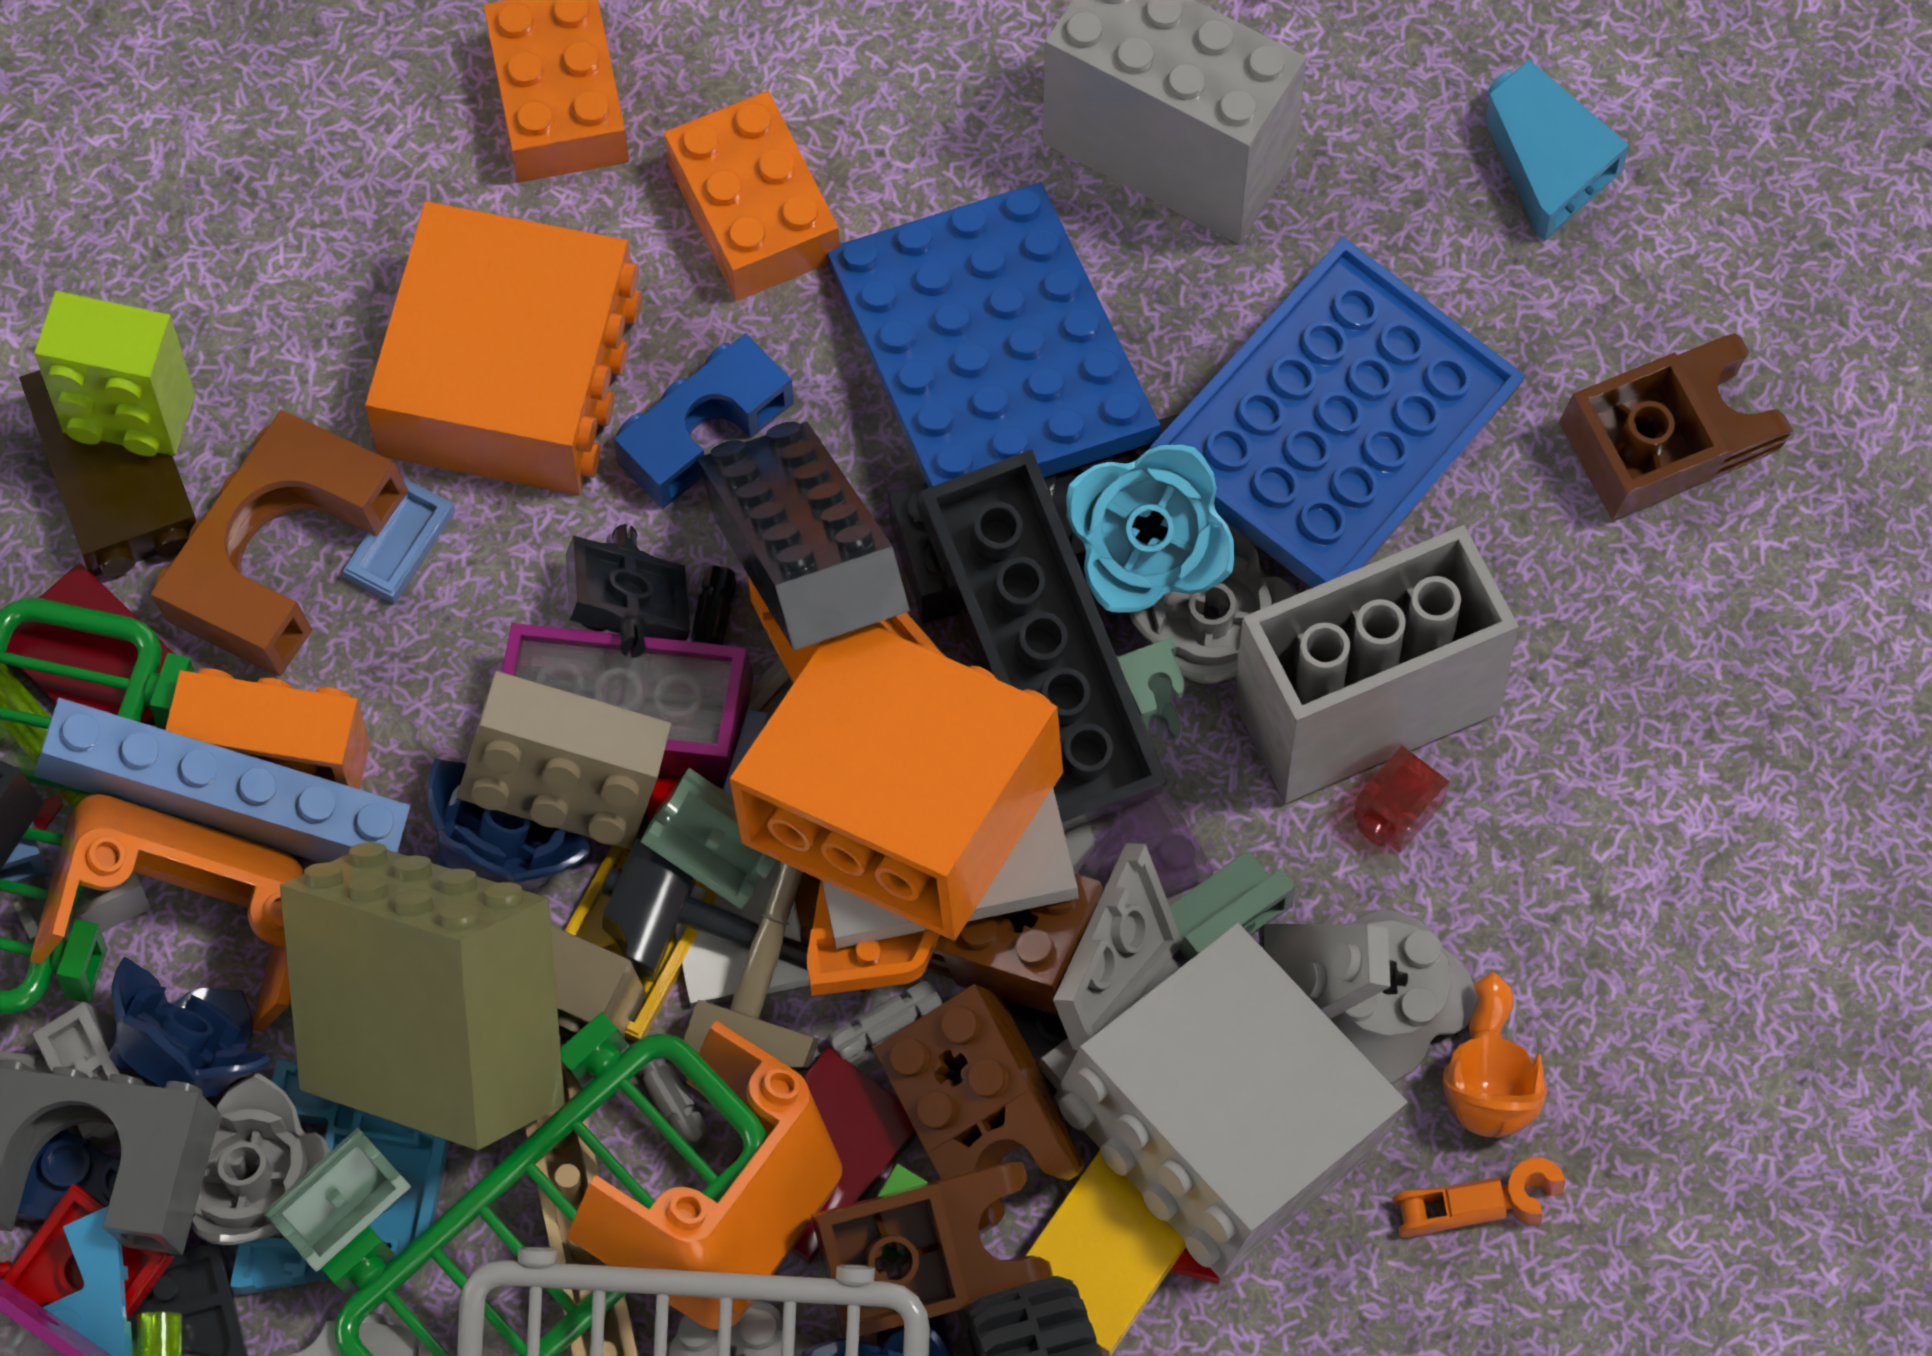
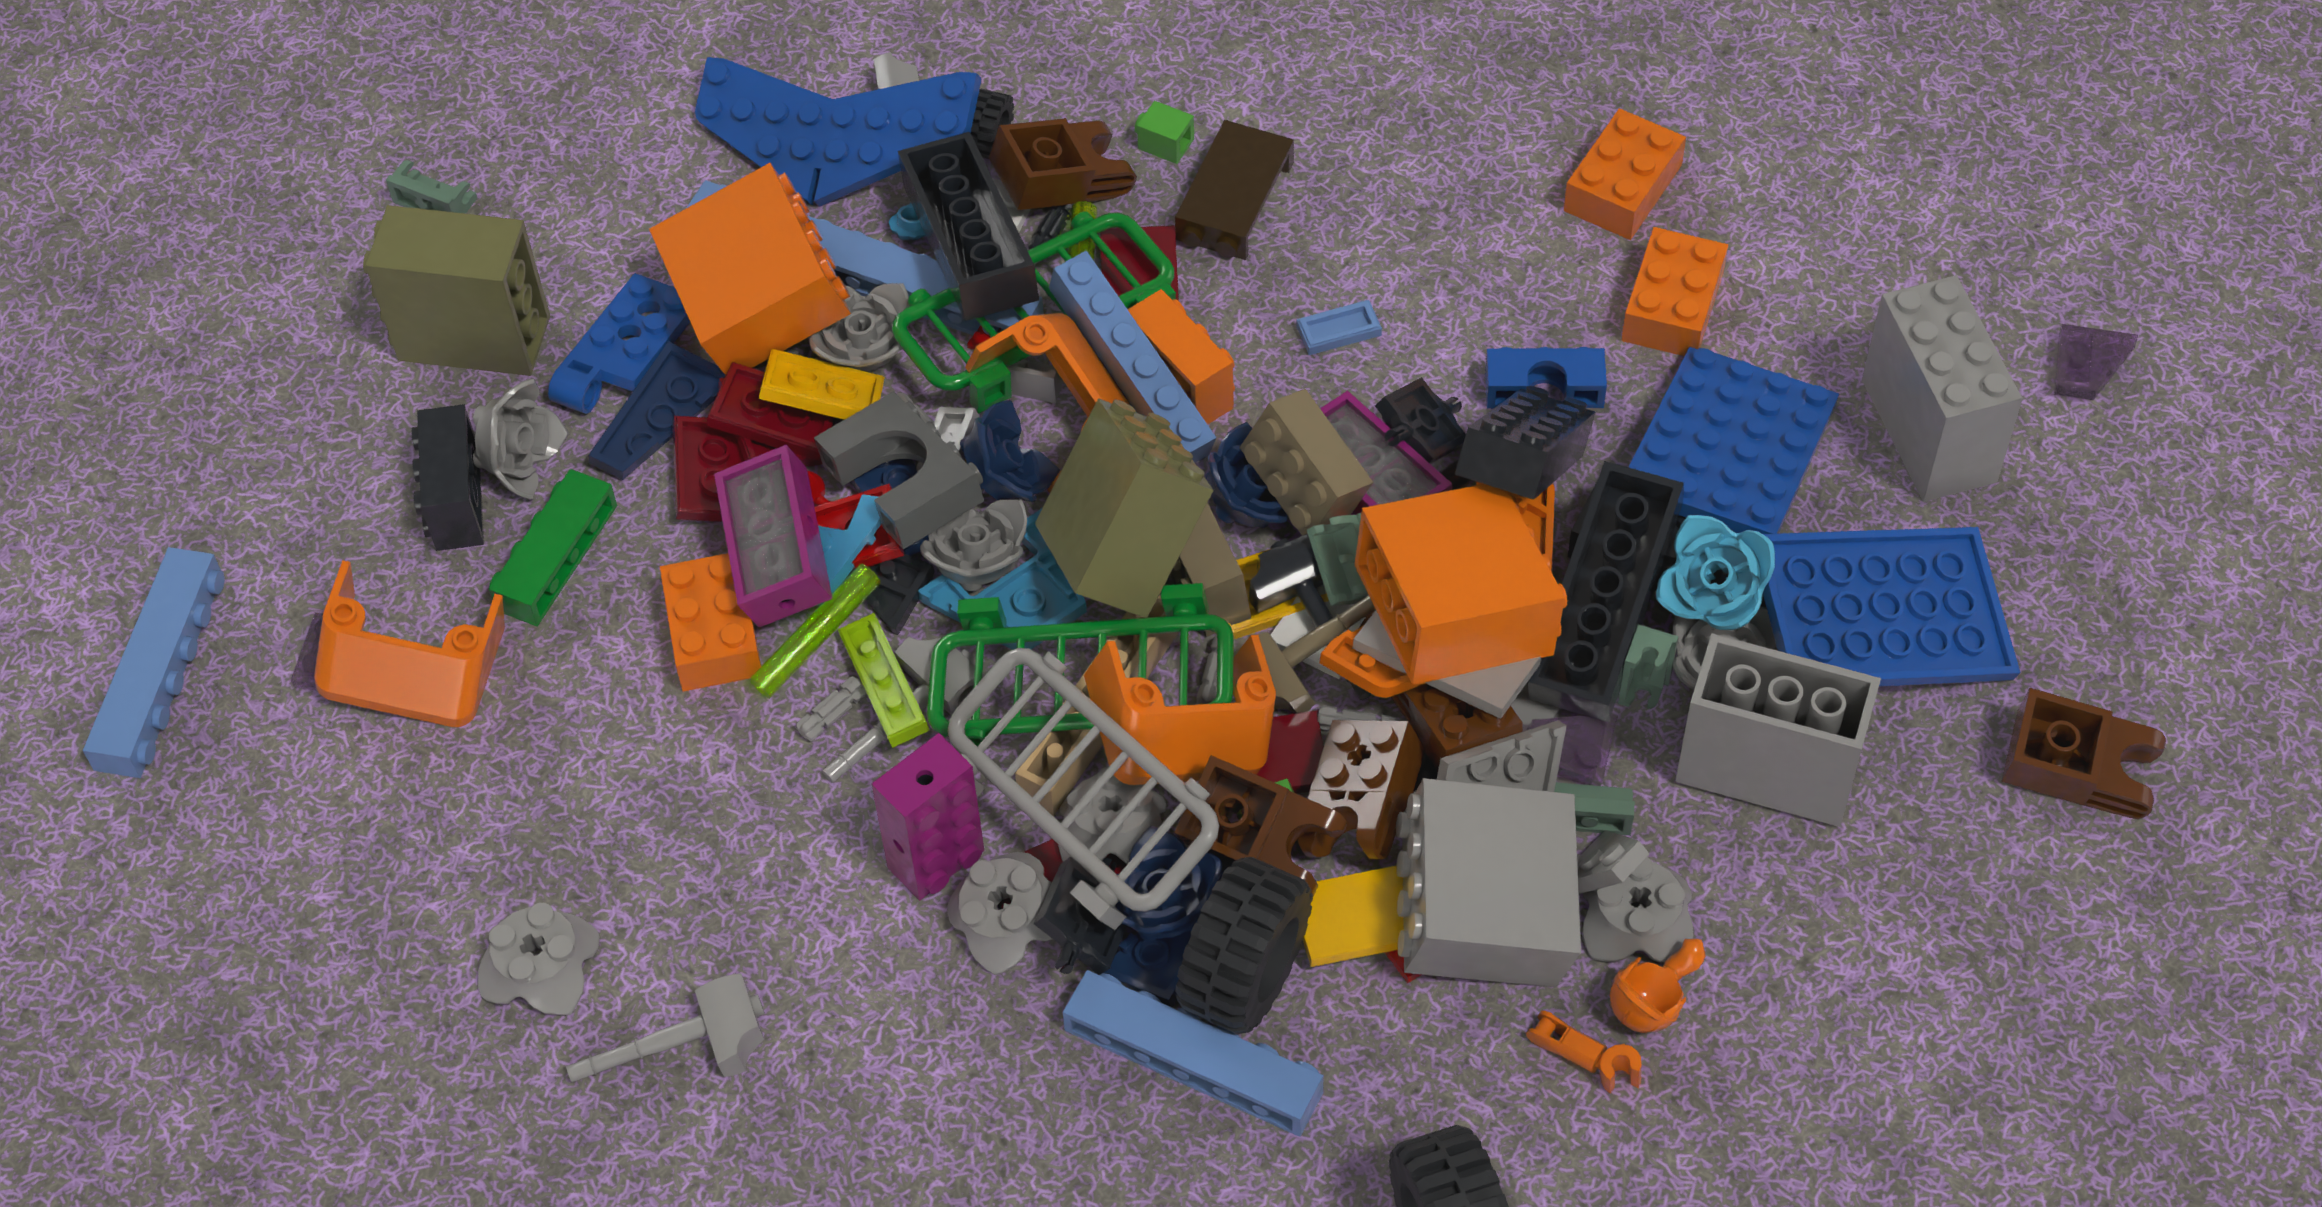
camera: 45 degrees right, 10 degrees down
(115, 374) = (1259, 133): lime brick -> none
(286, 471) = (1310, 253): dark orange arch -> none
(337, 1199) = (997, 576): sand green hinge -> none
(504, 348) = (1472, 269): orange brick -> none
(1399, 800) = (1737, 823): clear red brick -> none
(1550, 146) = (2150, 573): dark azure slope -> none

